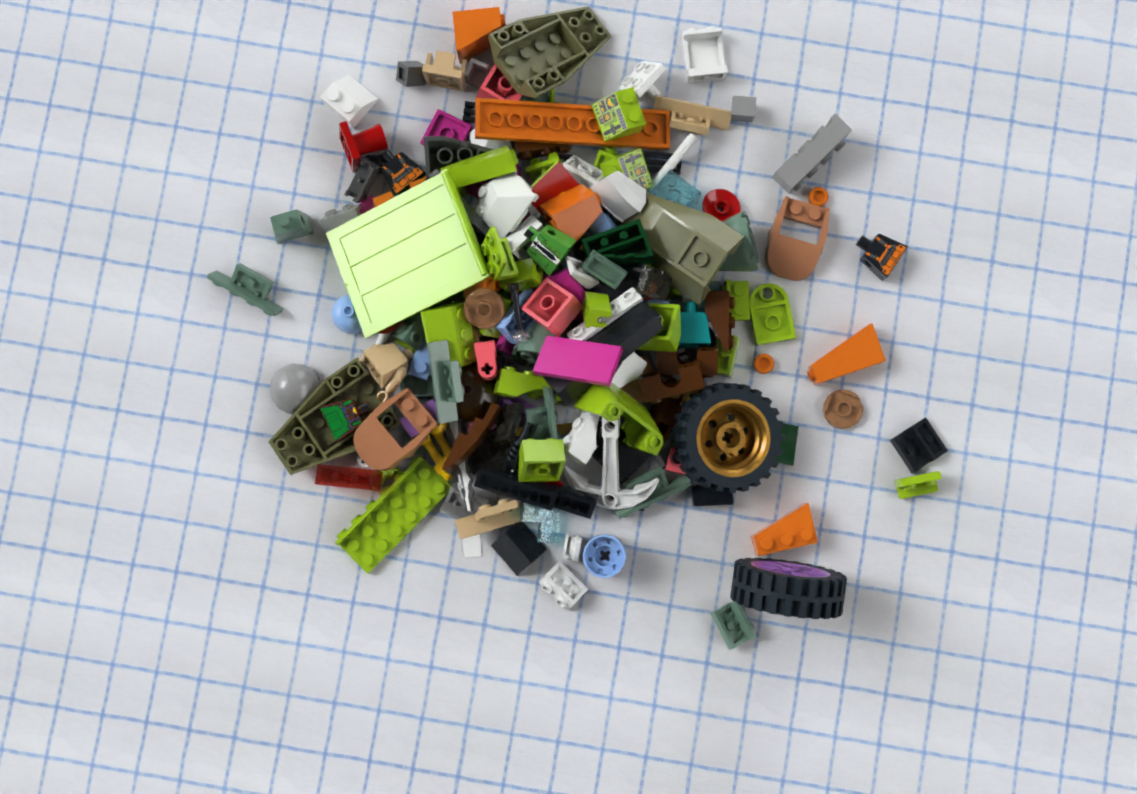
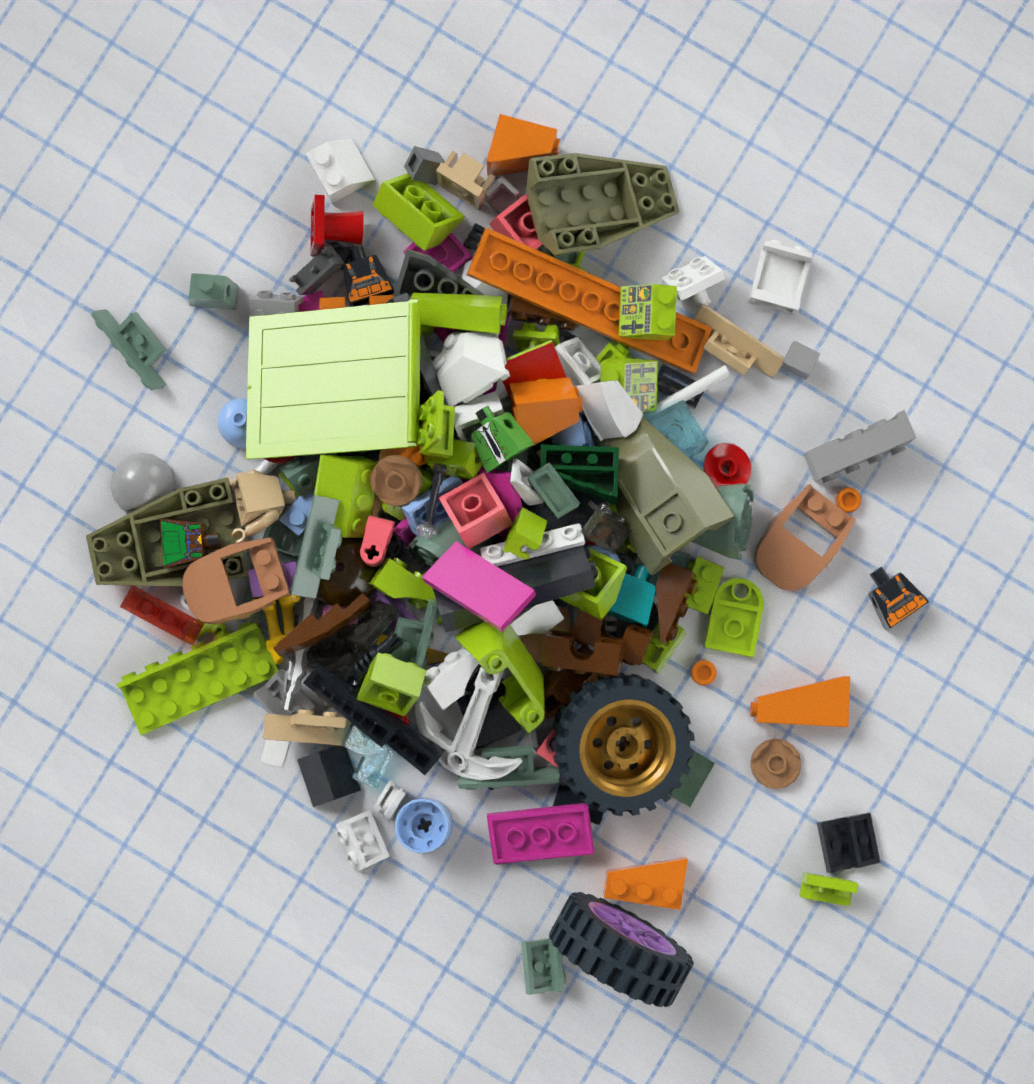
camera: 20 degrees right, 0 degrees up
(418, 108) = (417, 210): none -> lime slope
(692, 528) = (540, 833): none -> dark pink tile

